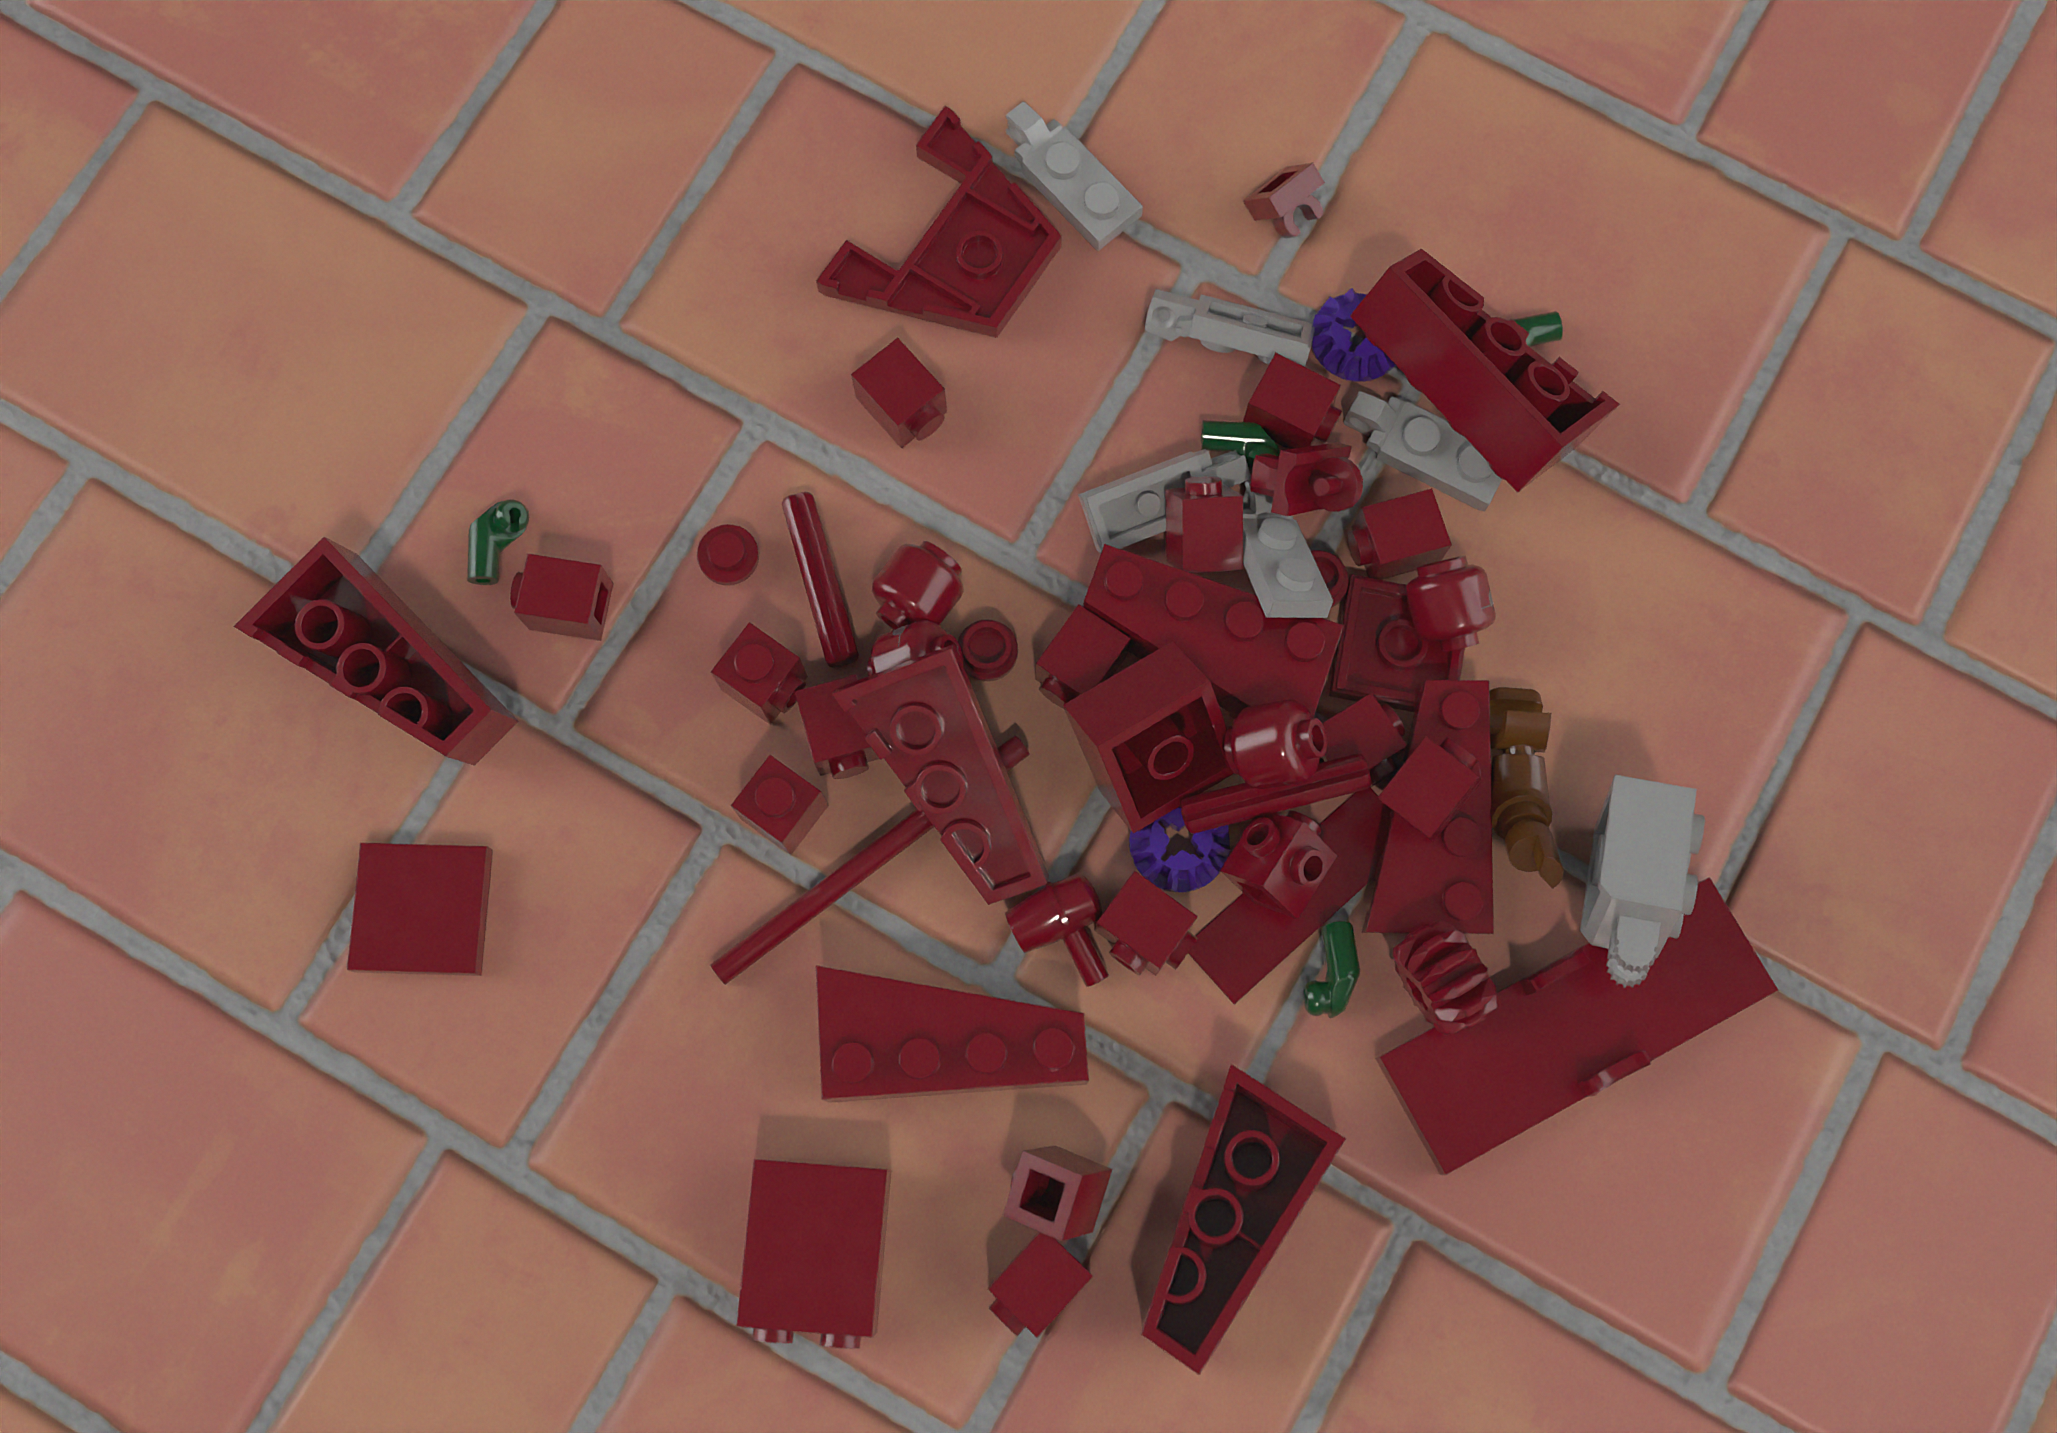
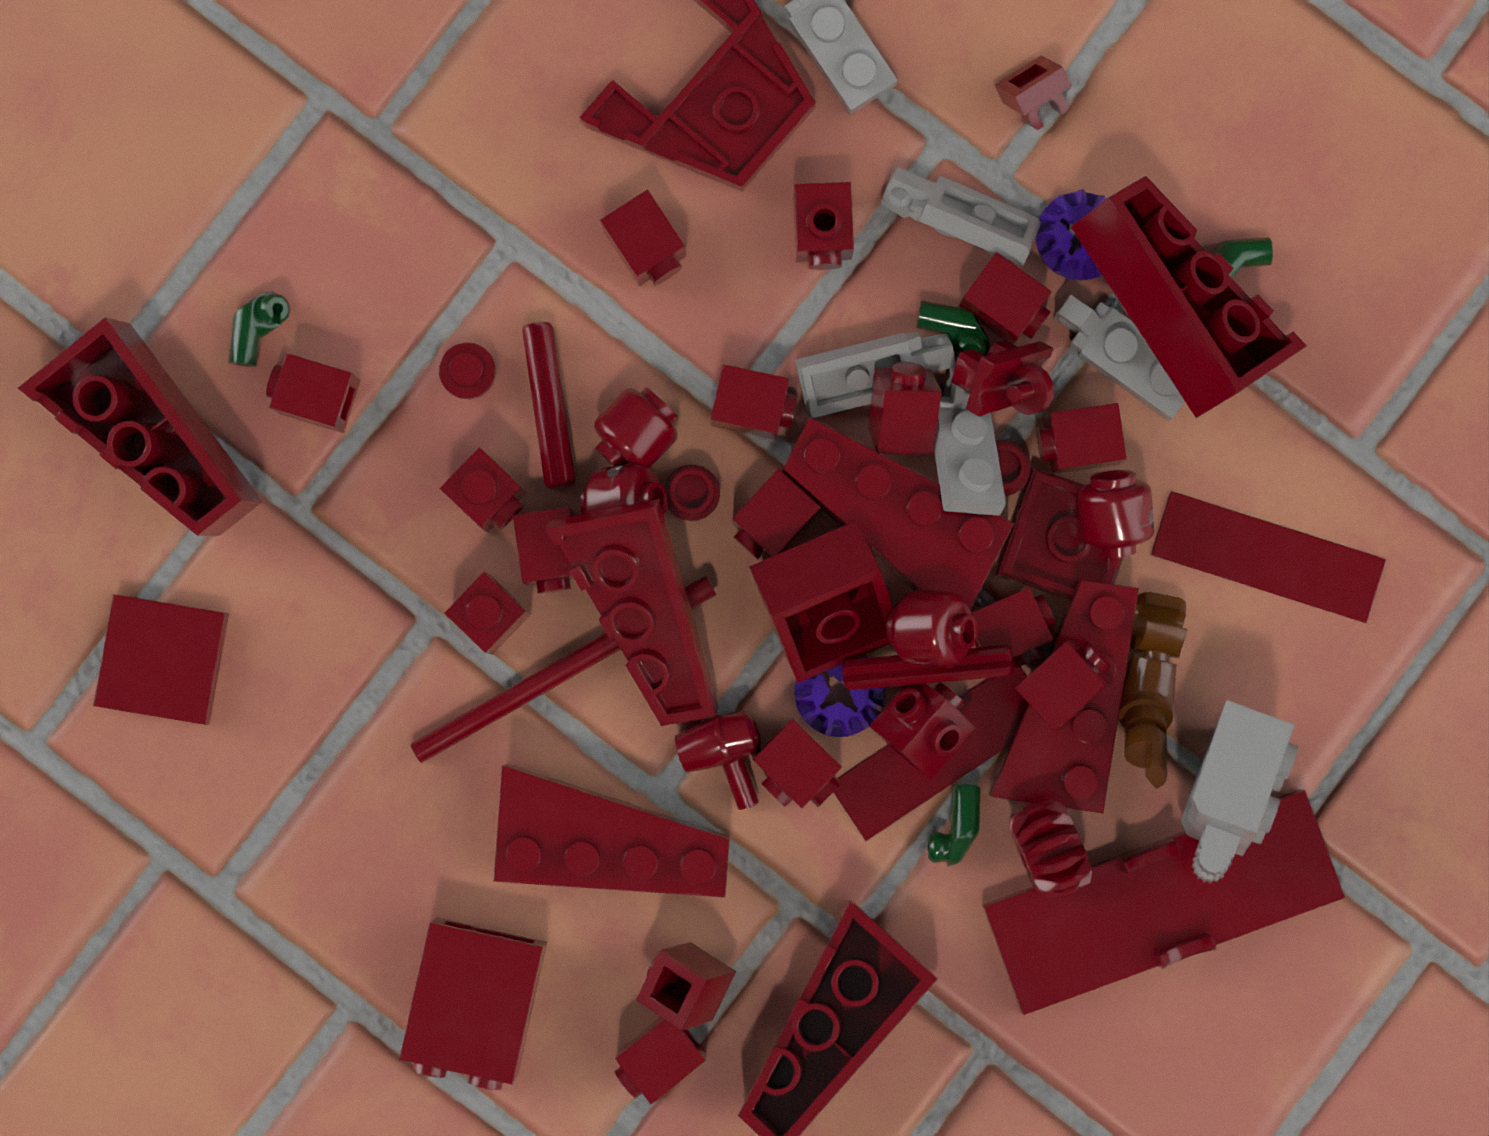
camera: 10 degrees right, 10 degrees up
(1039, 545) = (752, 402): none -> dark red brick
(1087, 354) = (823, 224): none -> dark red brick
(1617, 637) = (1268, 557): none -> dark red sticker

